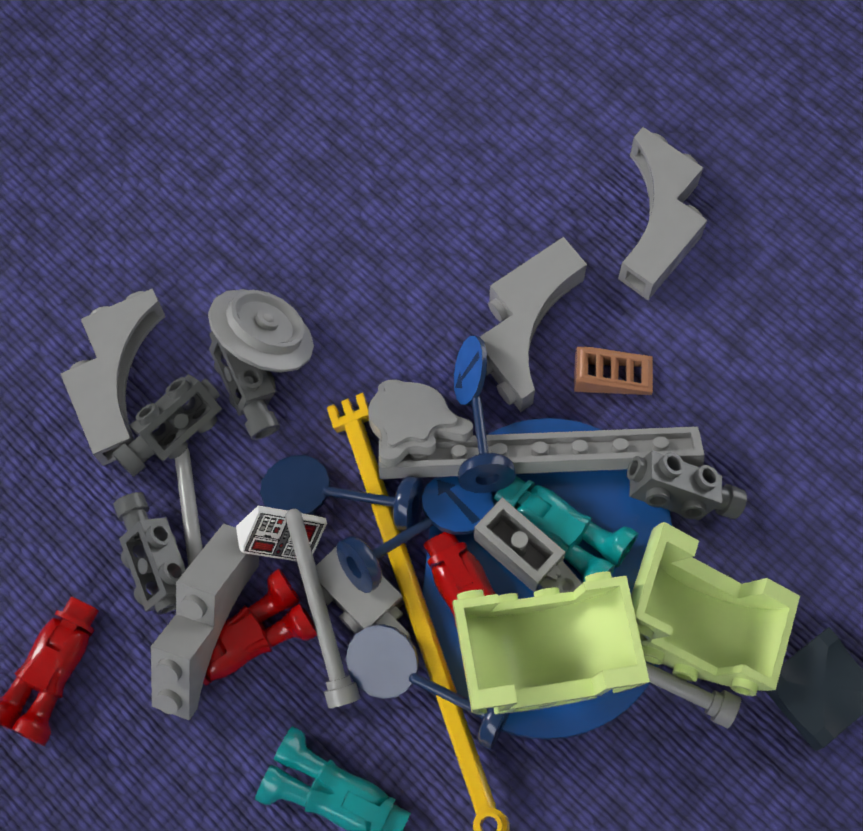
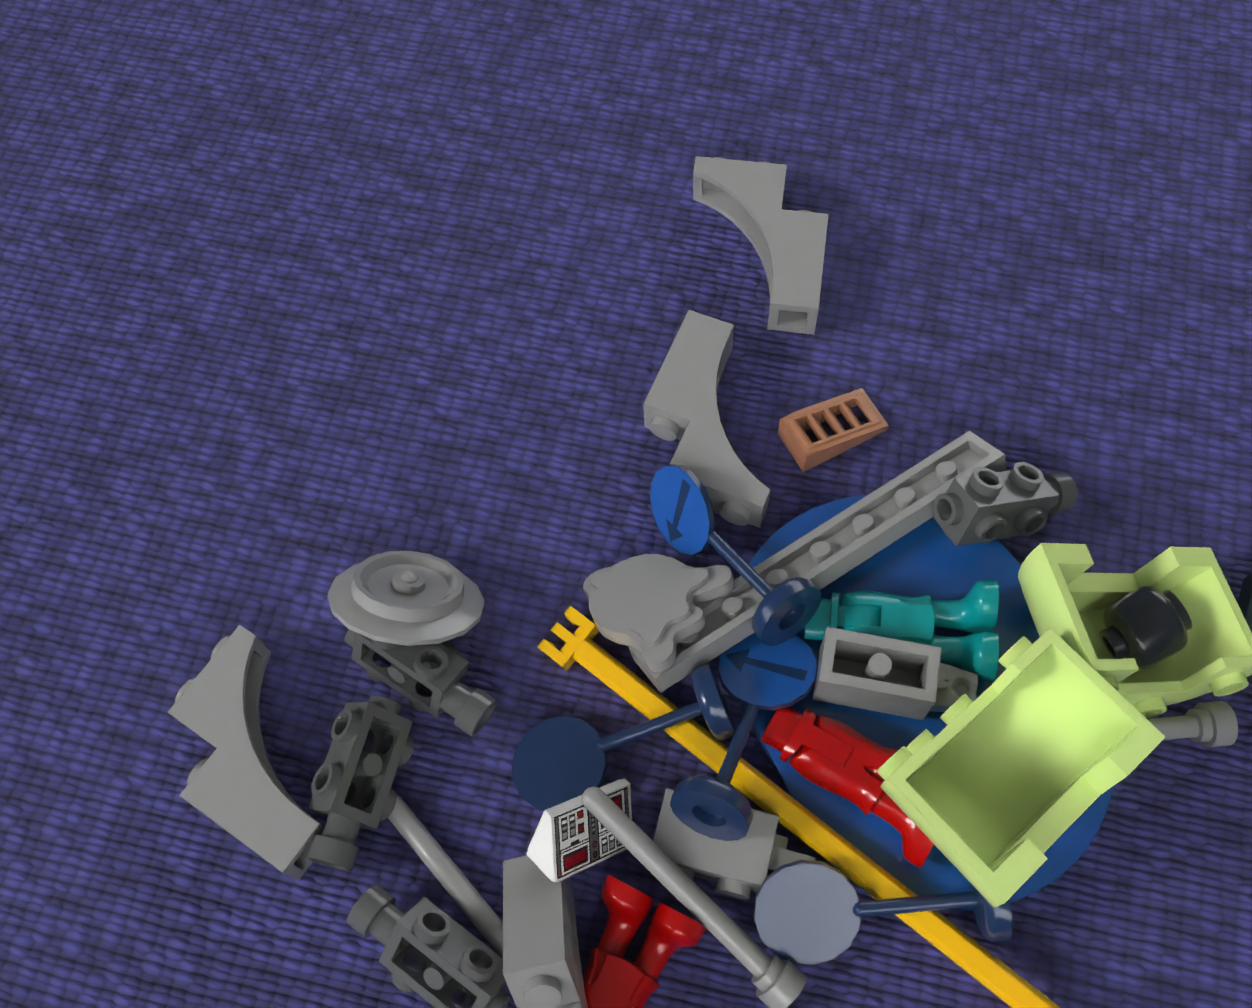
camera: 30 degrees left, 5 degrees down
(717, 620) = (1145, 626): none -> black head

